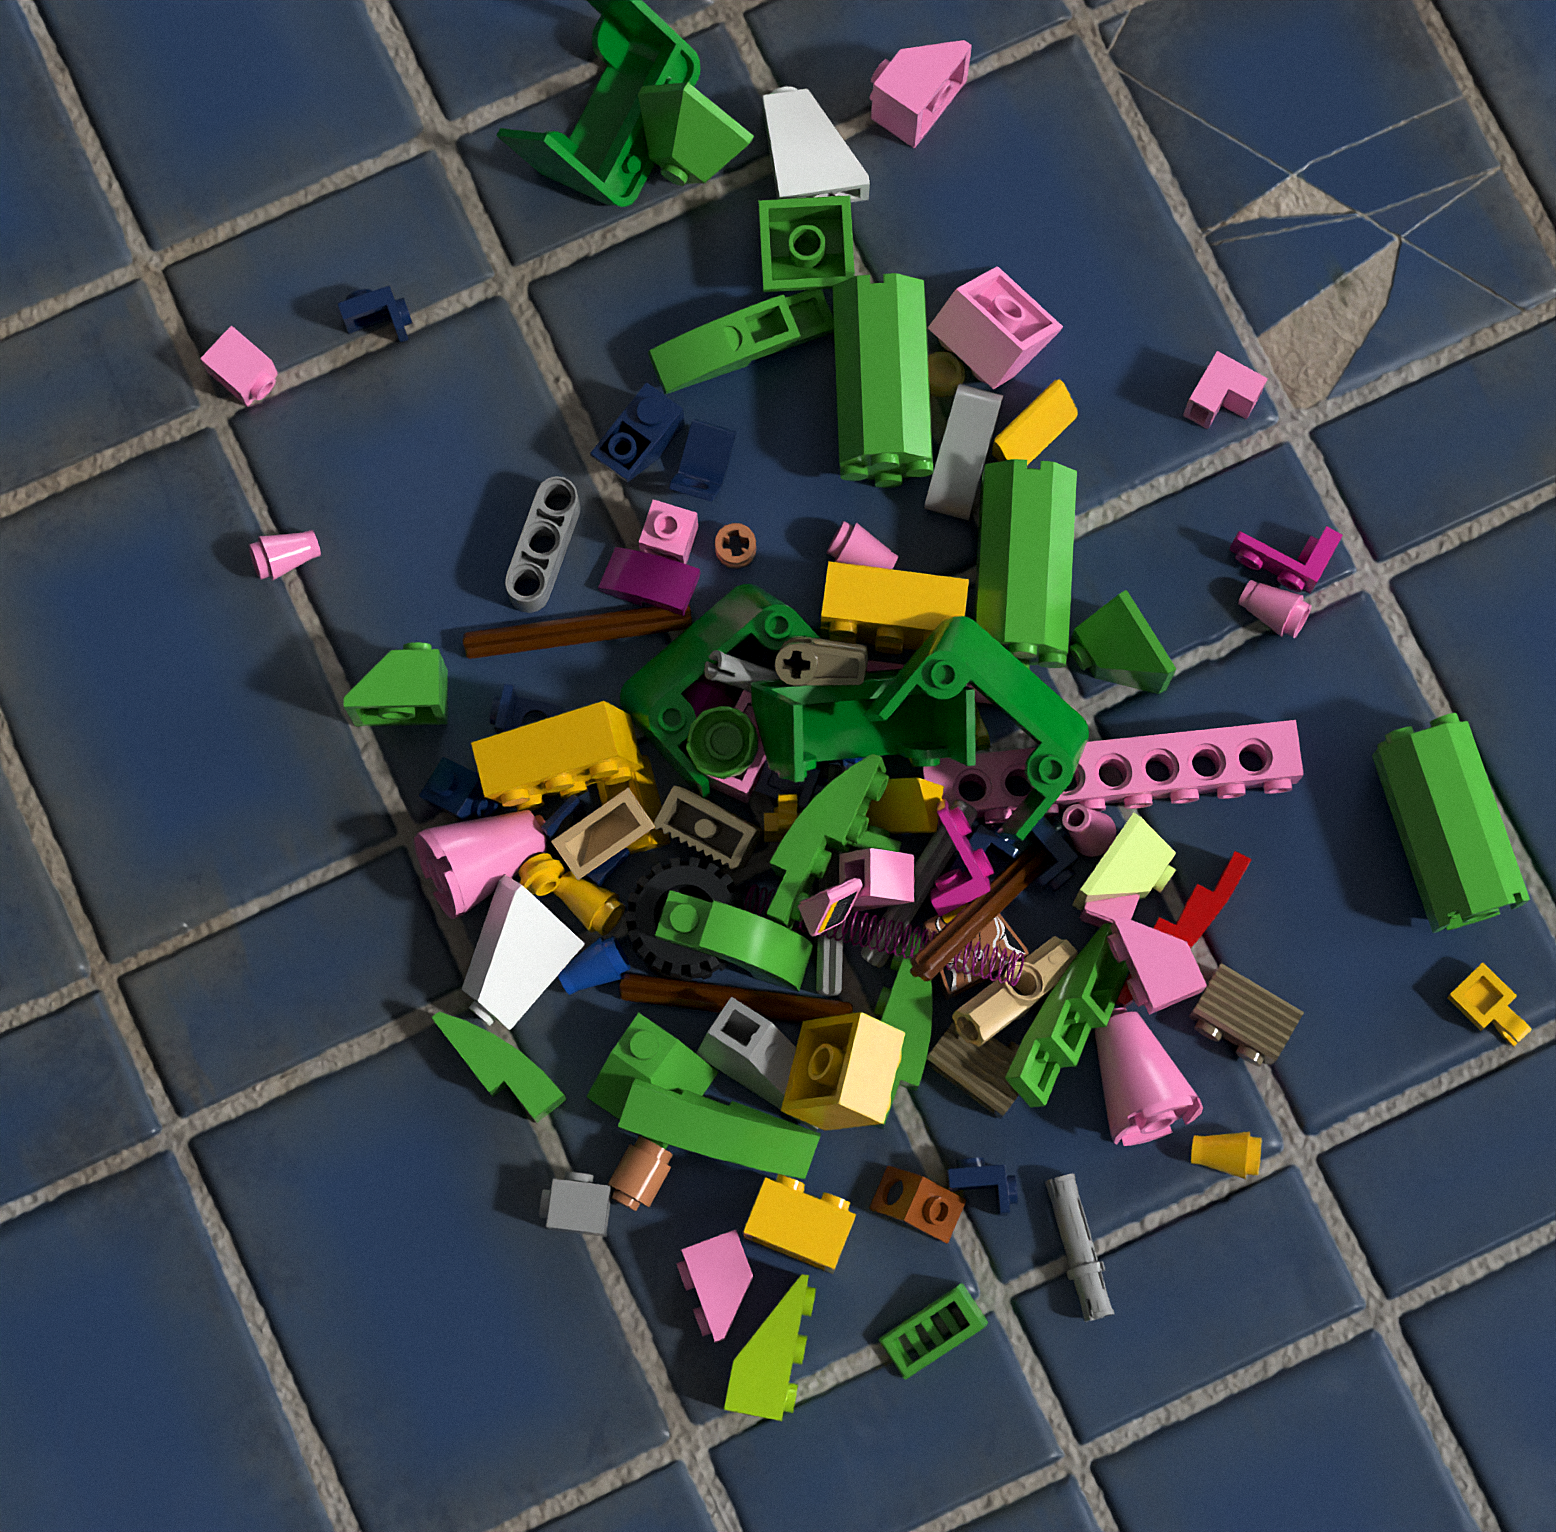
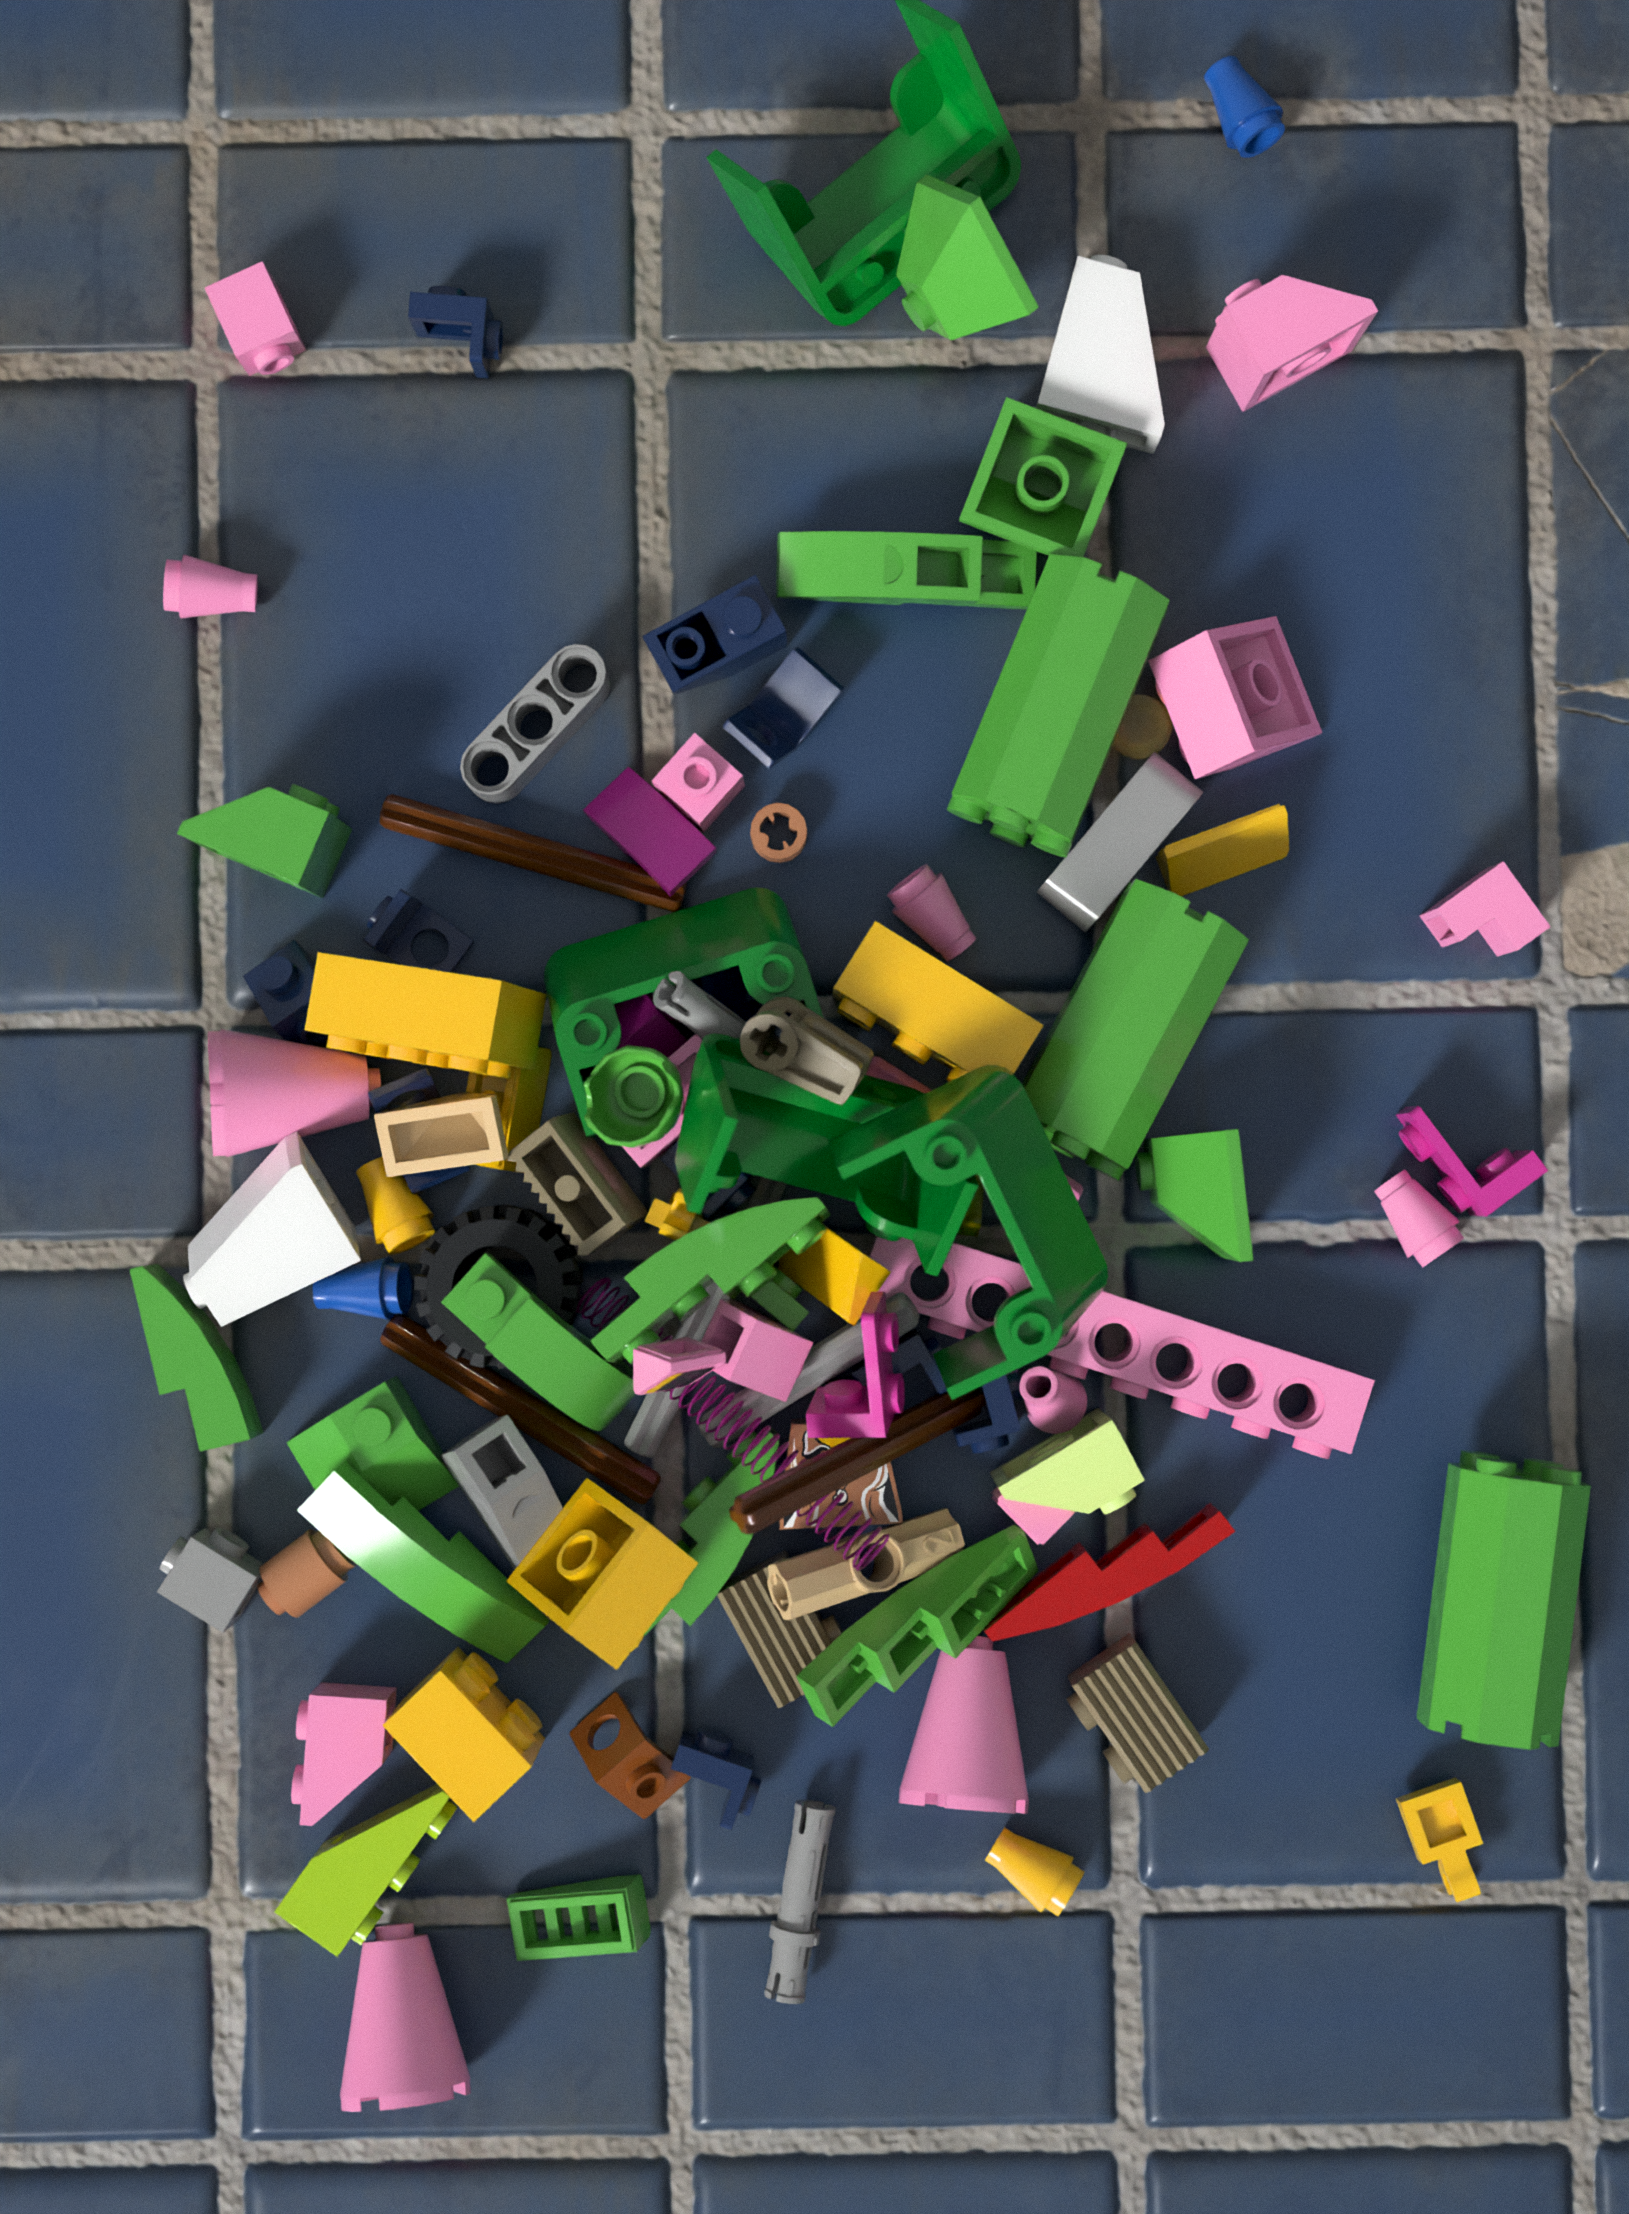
camera: 25 degrees right, 10 degrees up
(541, 874) = (345, 1148): yellow plate -> none
(847, 1454) = (401, 2027): none -> bright pink cone
(1159, 965) = (1055, 1623): bright pink slope -> none

